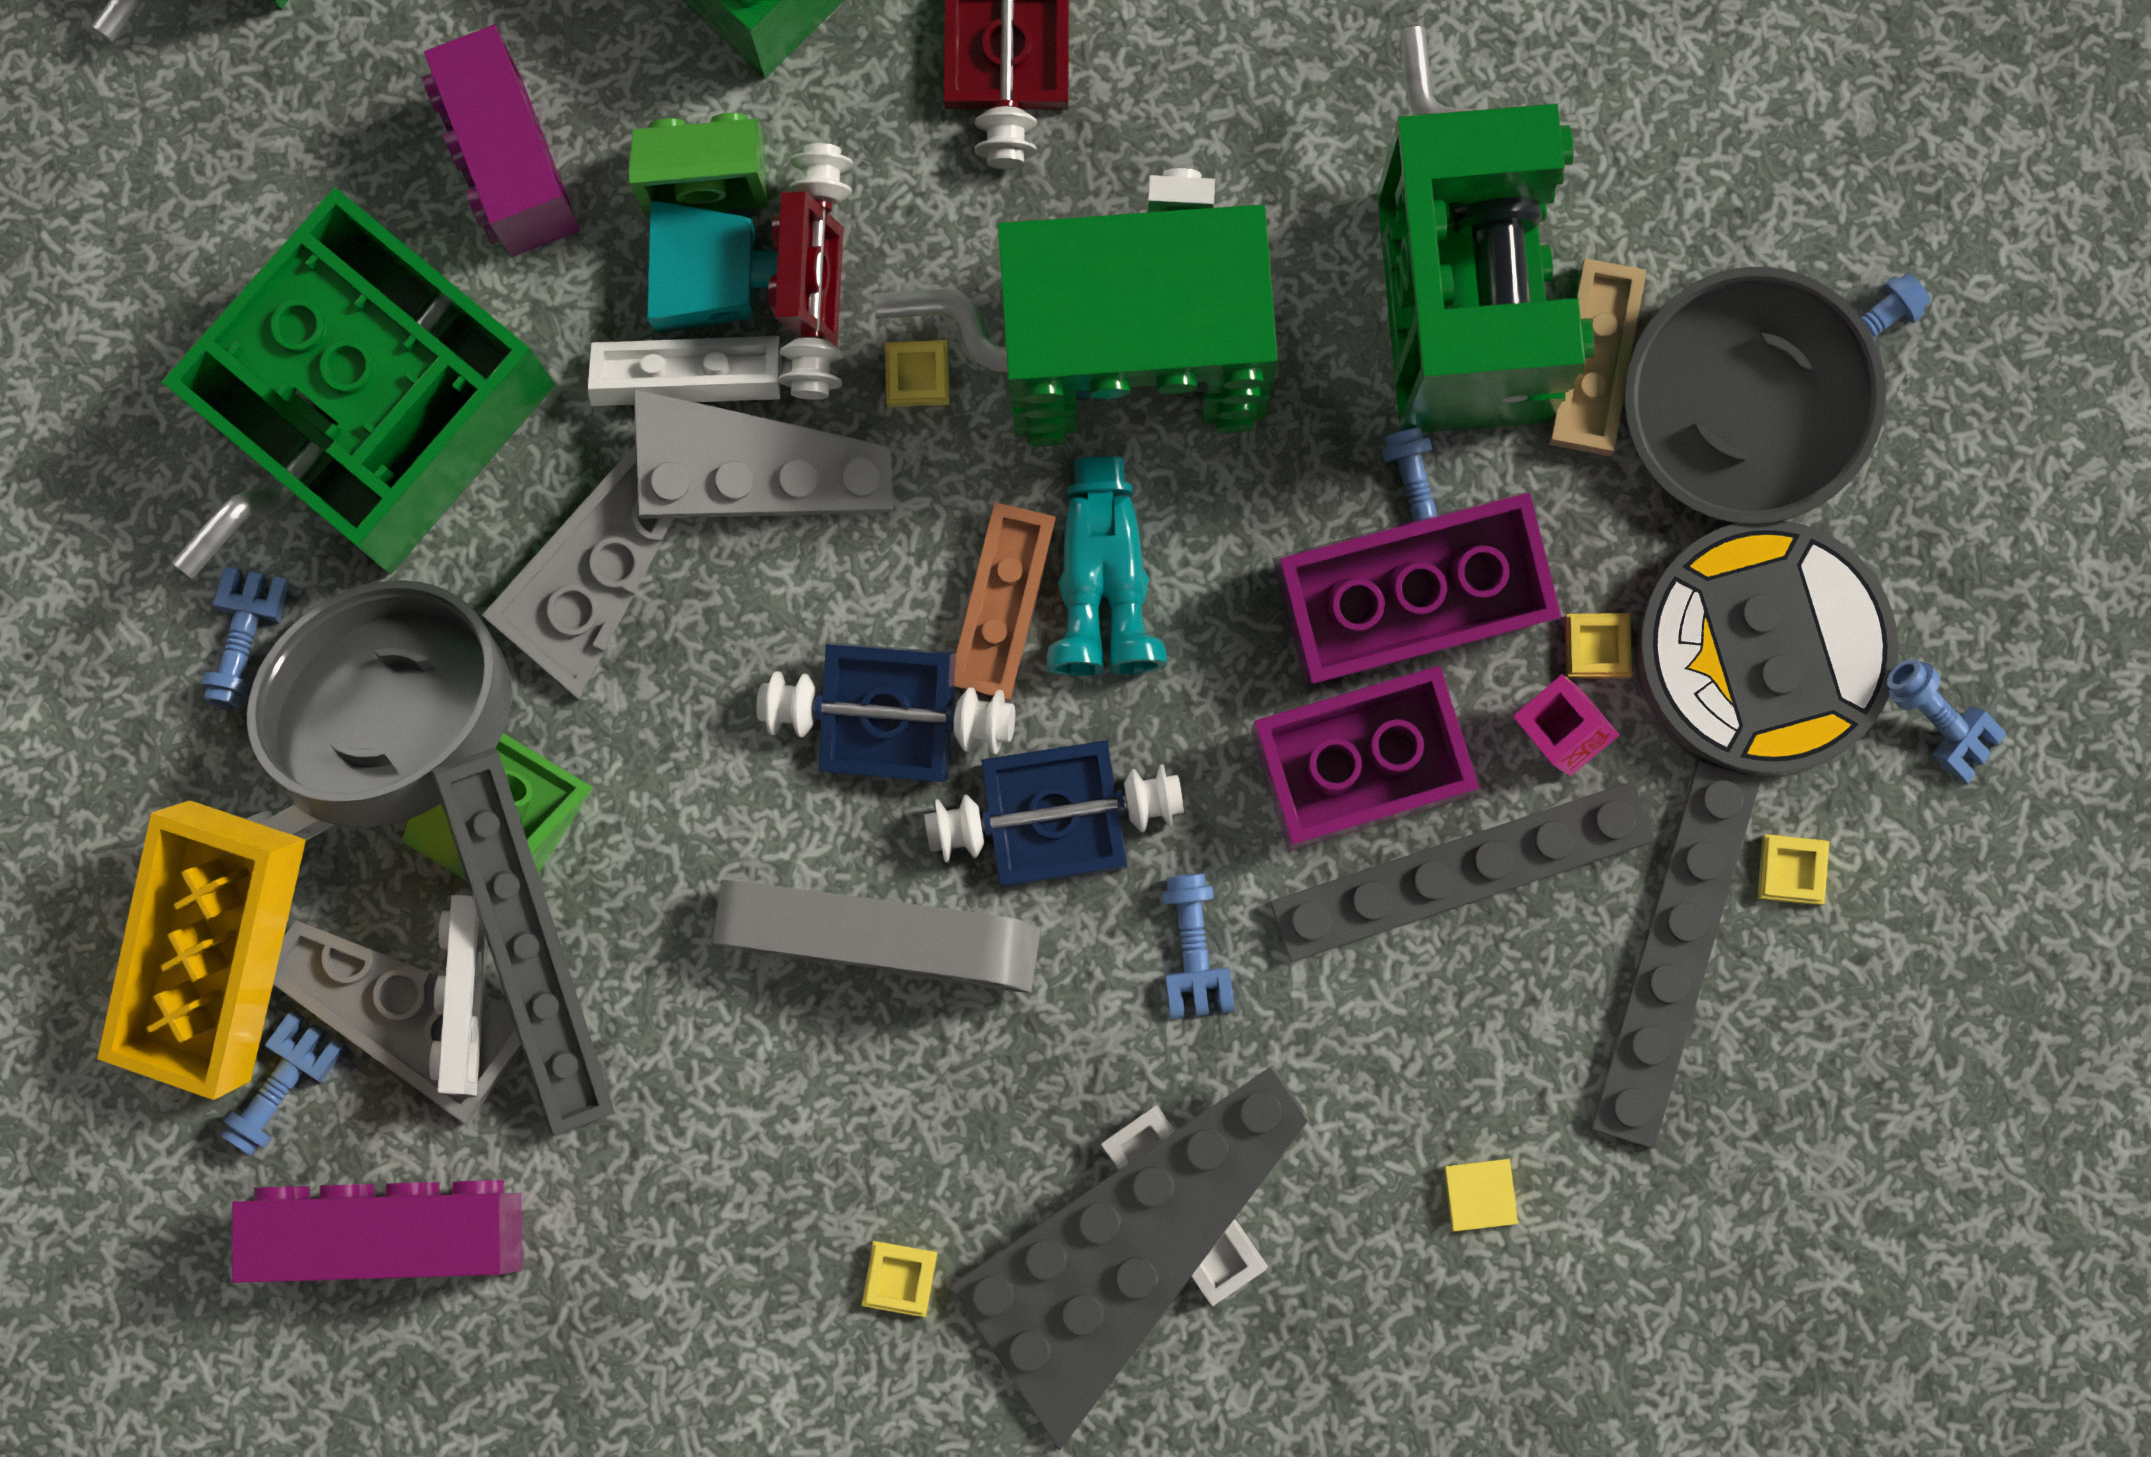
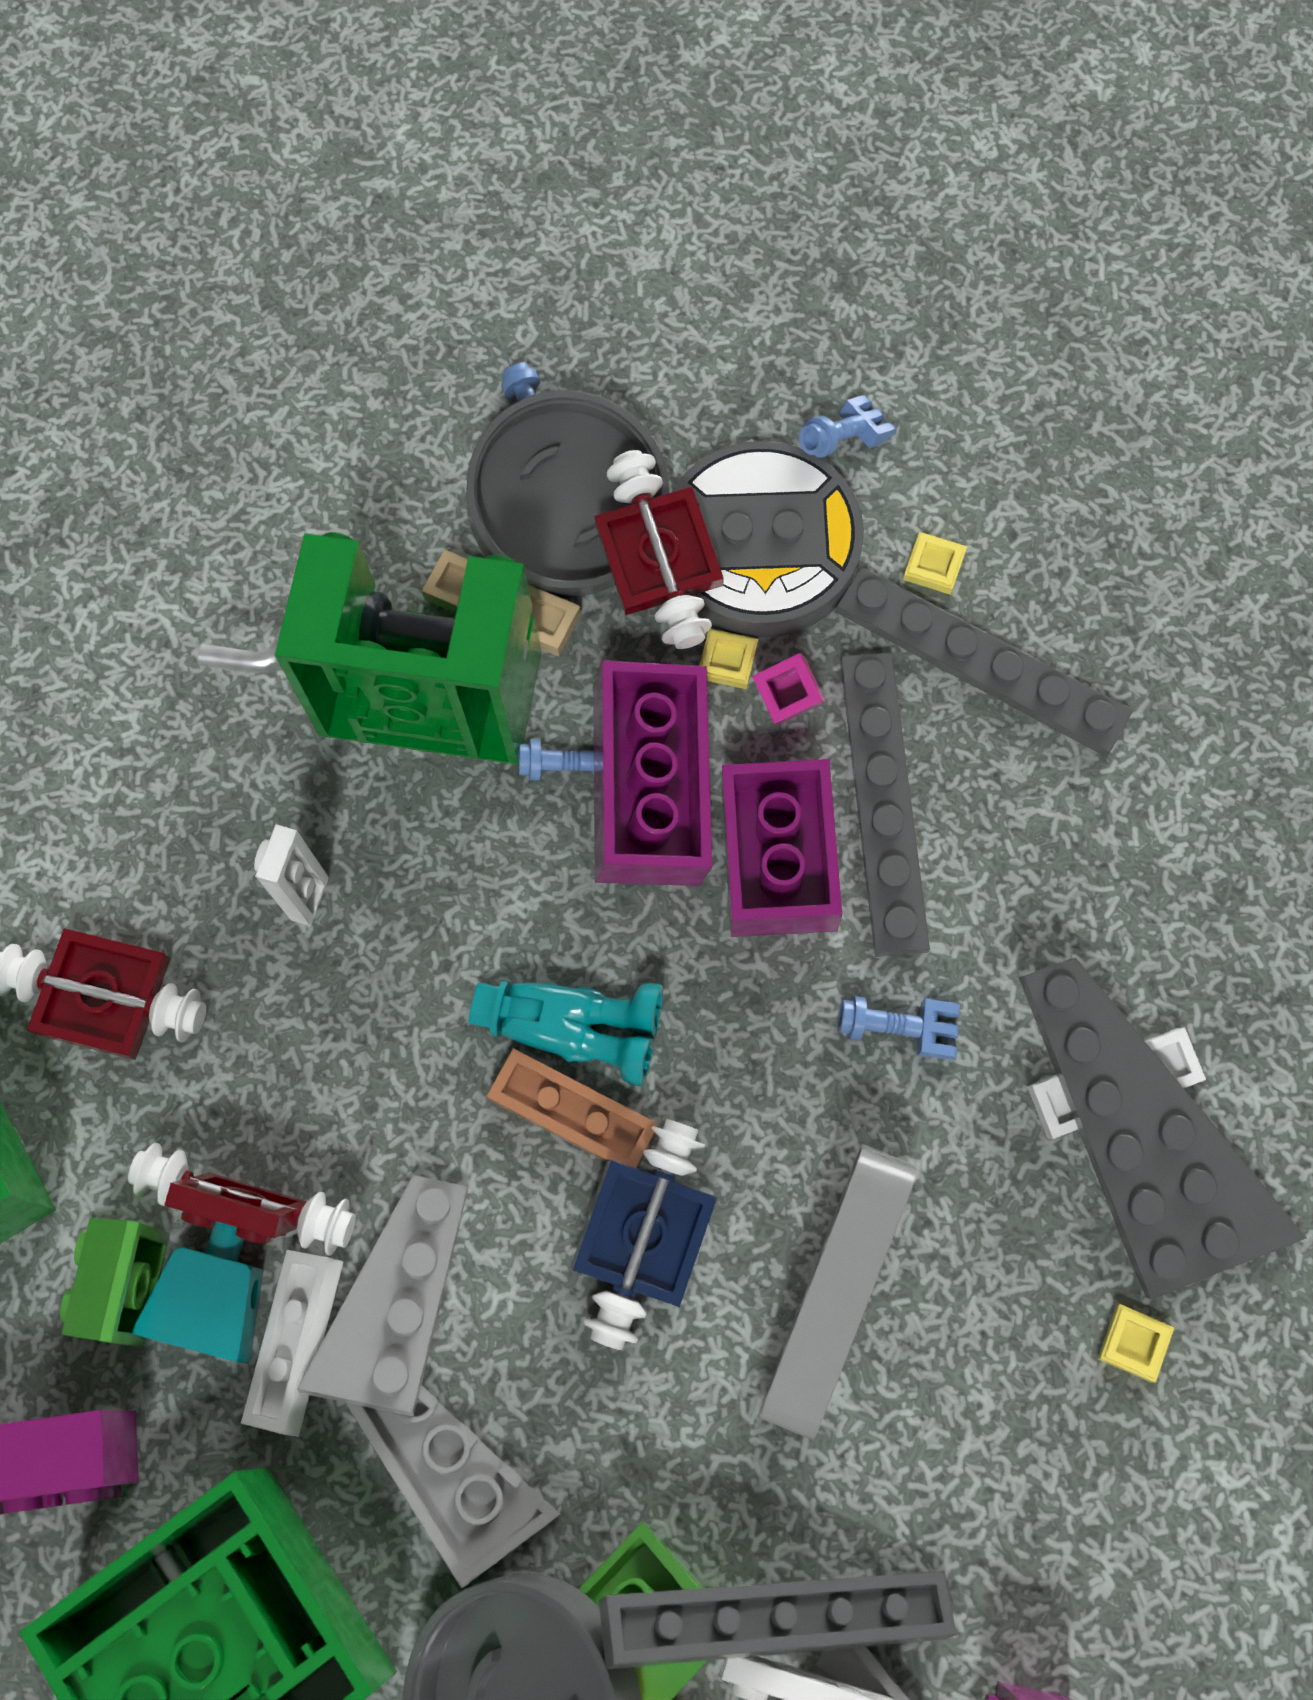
camera: 75 degrees left, 10 degrees down
(917, 373) = (355, 1138): light yellow tile -> none
(1054, 813) = (764, 1112): dark blue plate -> none
(1124, 307) = (362, 931): green piece -> none
(1480, 1195) = (1146, 849): light yellow tile -> none
(1700, 523) = (658, 550): none -> dark red plate

